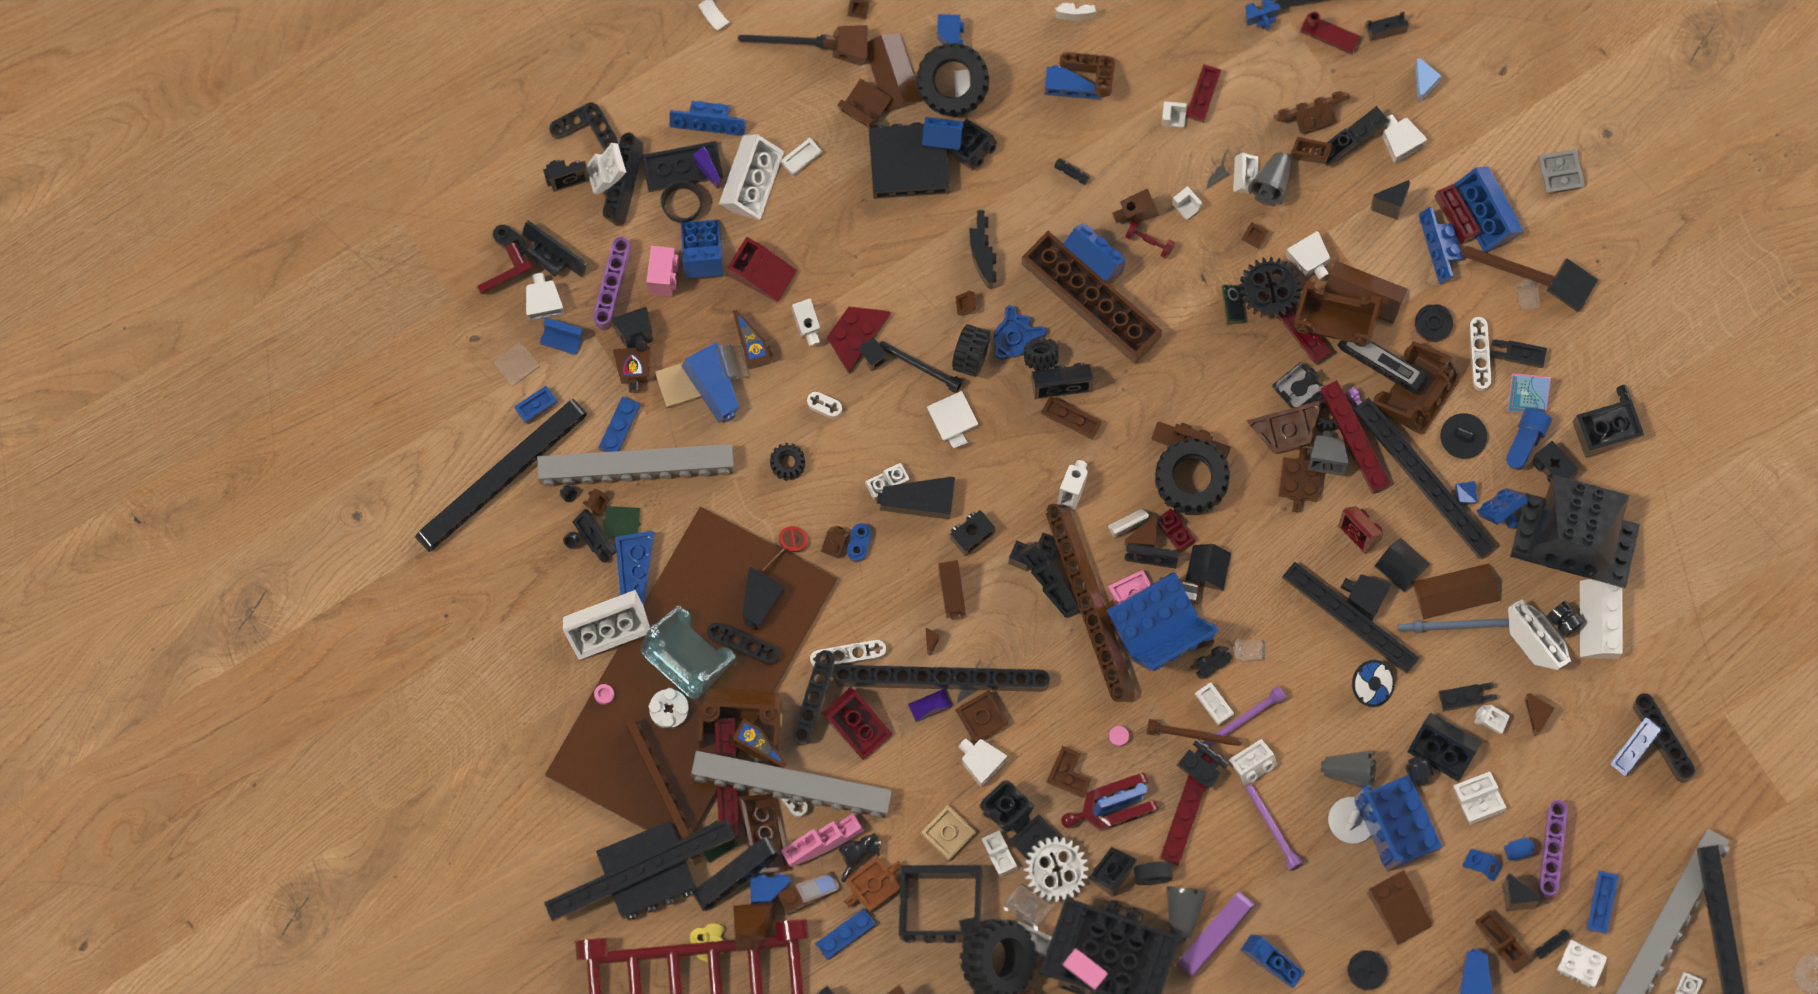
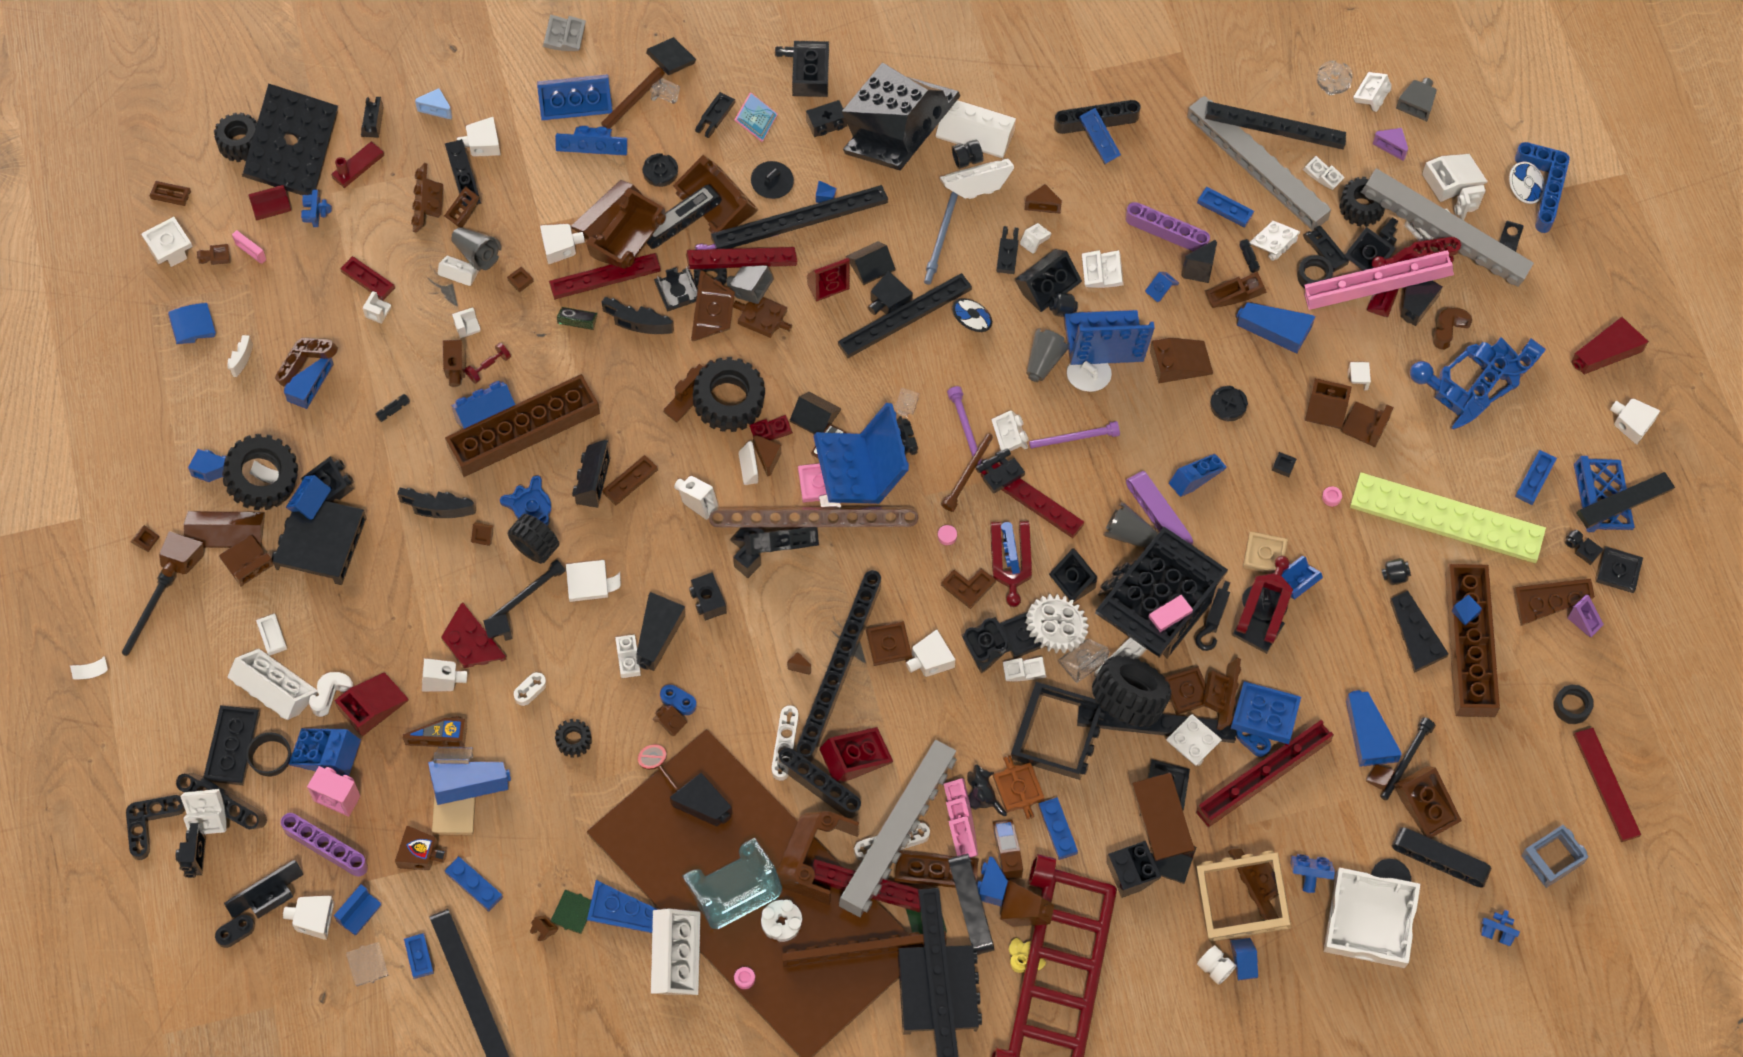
camera: 75 degrees left, 10 degrees down
(520, 267) = (268, 927): dark red piece -> none
(571, 540) = (571, 965): black hinge -> none
(572, 495) = (524, 952): black hinge -> none
(594, 535) = (577, 939): black hinge -> none
(634, 329) = (382, 836): black torso -> none
(635, 464) = (519, 880): light grey brick -> none
(705, 164) = (243, 718): dark purple slope -> none
(707, 118) = (194, 705): blue bracket -> none
(742, 645) = (739, 830): black beam -> none
(754, 742) = (848, 845): slope -> none
(759, 226) = (326, 688): none -> white animal
(930, 705) = (860, 686): dark purple slope -> none
(948, 832) = (989, 708): tan tile -> none
(952, 589) = (757, 629): reddish brown slope -> none
(1041, 354) = (560, 483): black tyre -> none
(1151, 556) = (789, 453): black hinge -> none
(1153, 873) = (1089, 541): black tyre -> none
(1214, 704) = (945, 447): white plate -> none
(1251, 367) = (640, 321): none -> black slope
(1253, 290) = (577, 278): black gear -> none
(1391, 200) = (539, 160): black slope -> none
(1456, 591) = (910, 229): reddish brown slope -> none
(1457, 213) = (568, 120): dark red slope -> none
(1480, 354) = (704, 142): white beam -> none
(1502, 507) = (850, 166): blue plate -> none
(1519, 849) = (1159, 253): blue brick -> none
(1532, 428) = (787, 123): blue piece -> none

